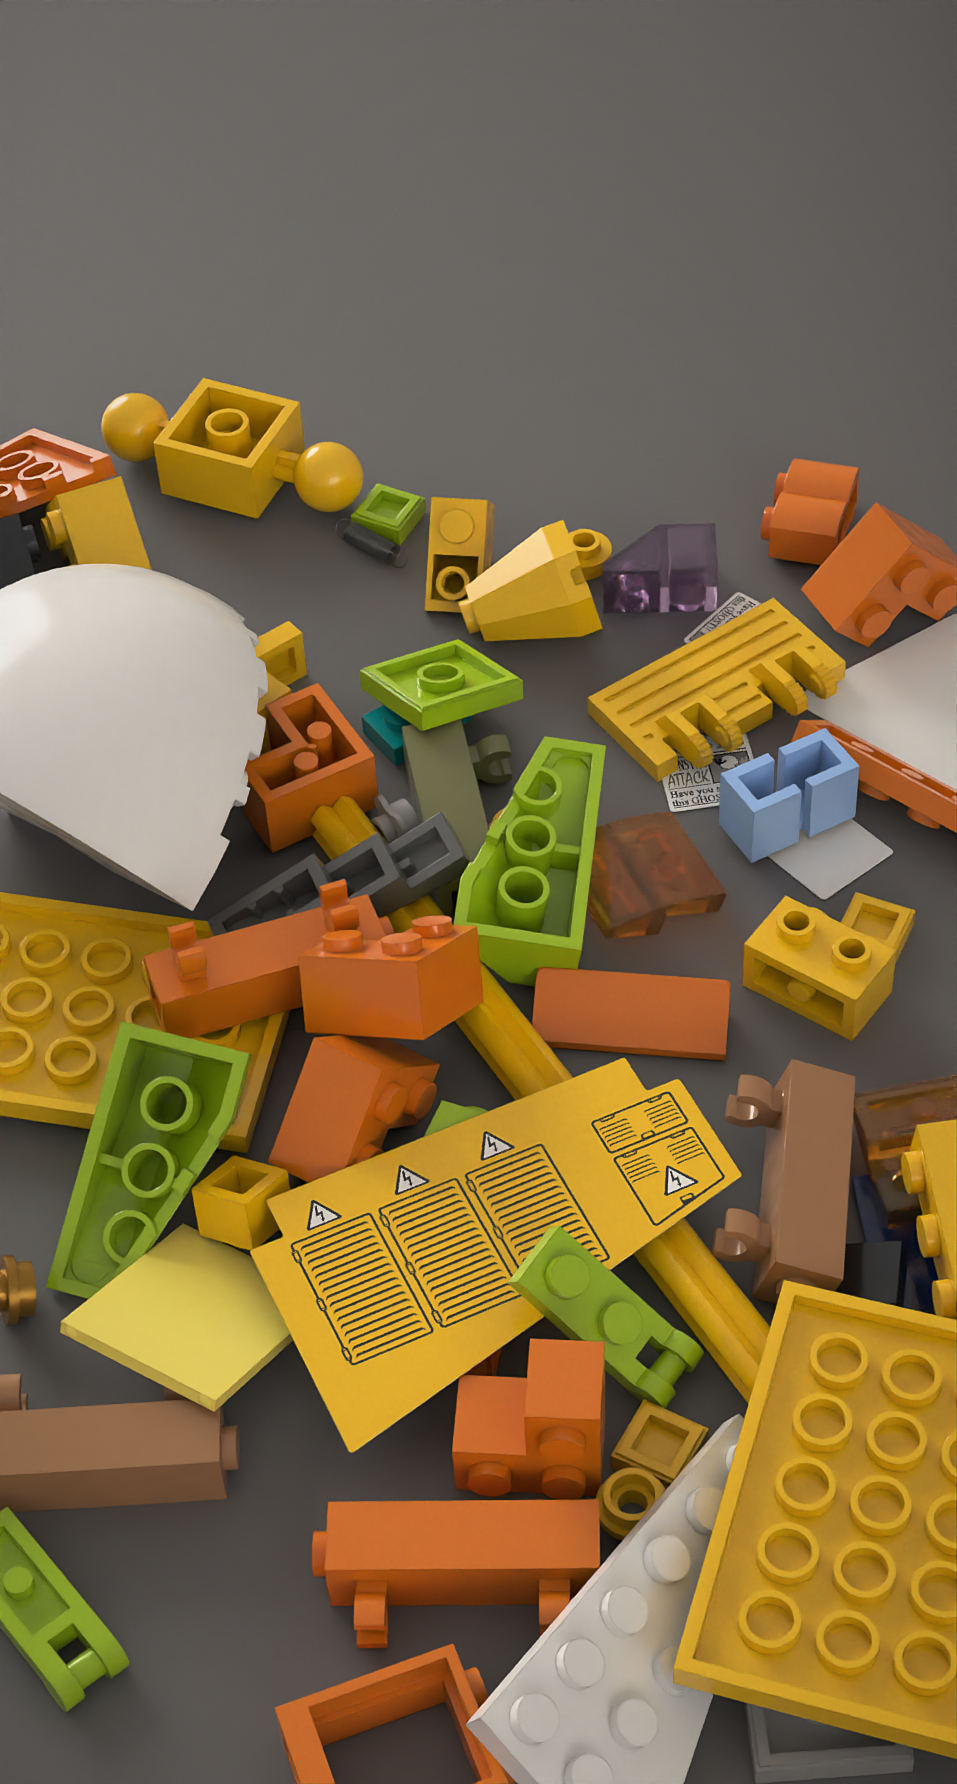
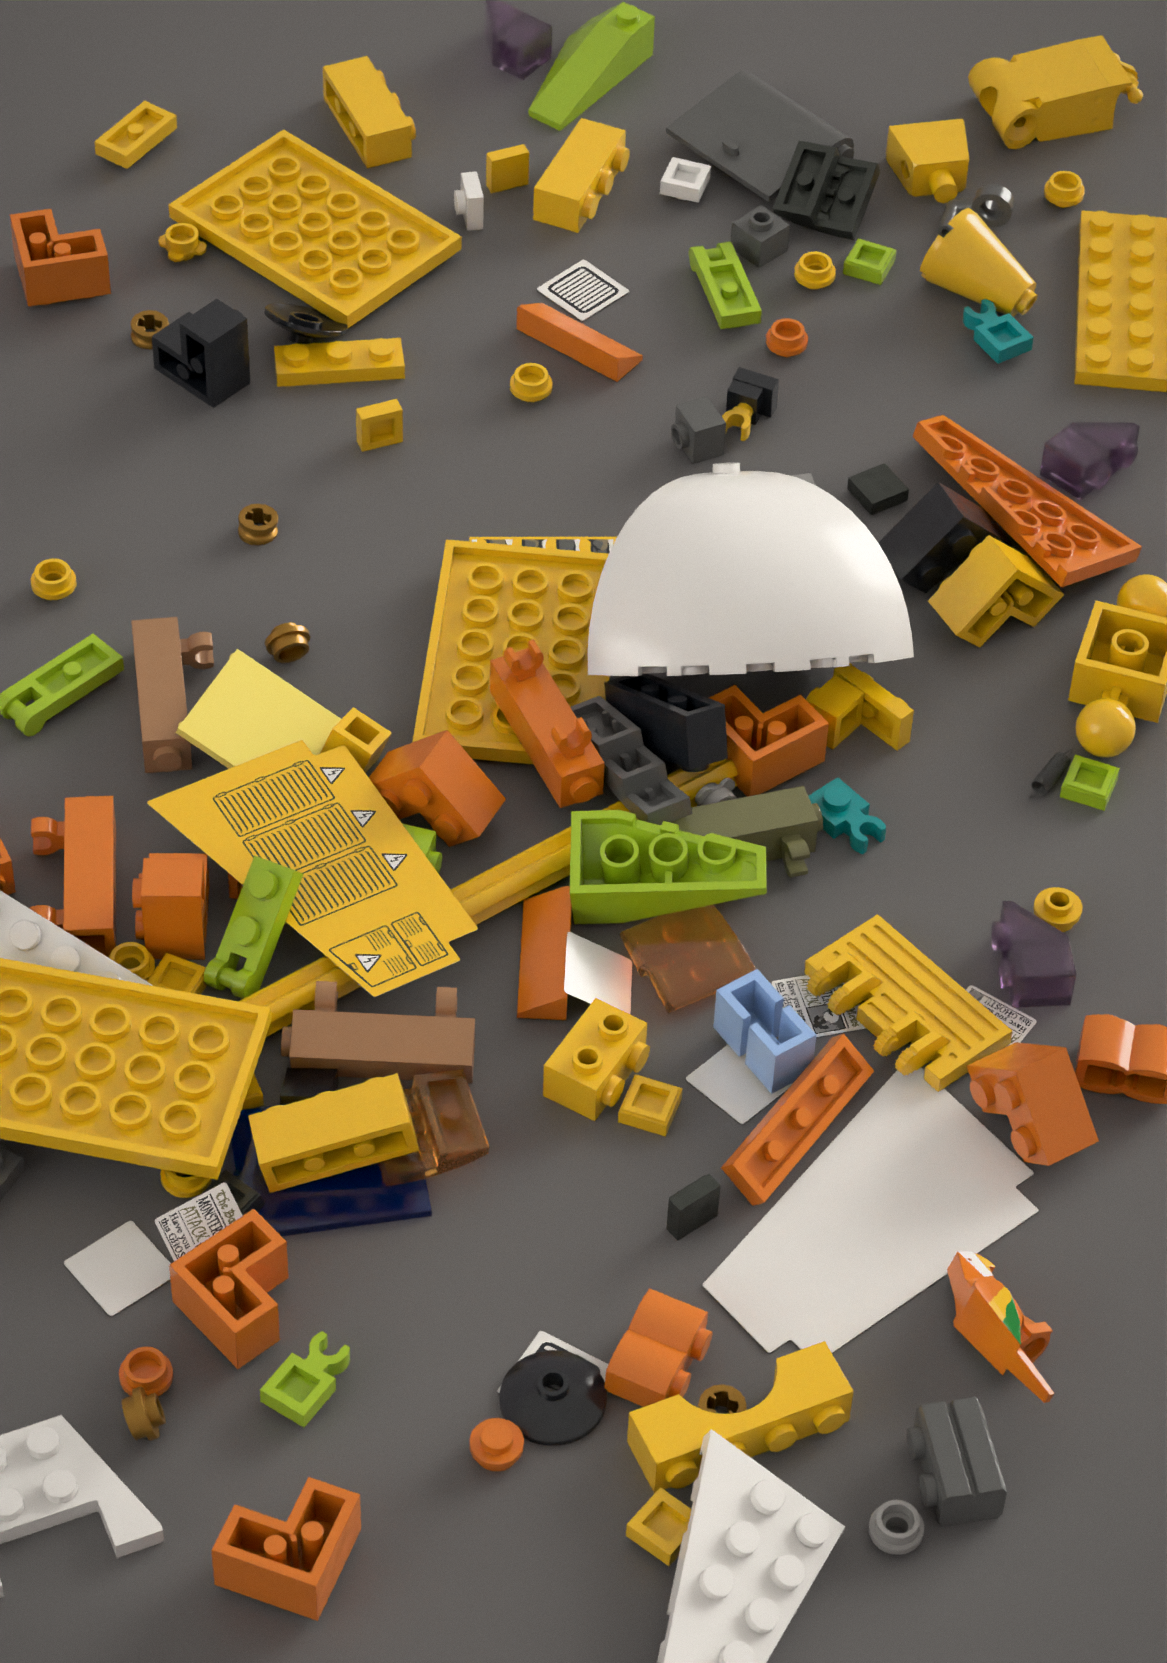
camera: 80 degrees right, 0 degrees up
(149, 1140) = (392, 674): lime wedge -> none
(304, 812) = (672, 720): none -> black brick
(392, 985) = (514, 787): orange brick -> none
(441, 684) = (858, 809): lime plate -> none
(457, 549) = (1034, 820): yellow slope -> none
(533, 592) = (984, 869): yellow cone -> none
(678, 960) = (597, 973): none -> white sticker

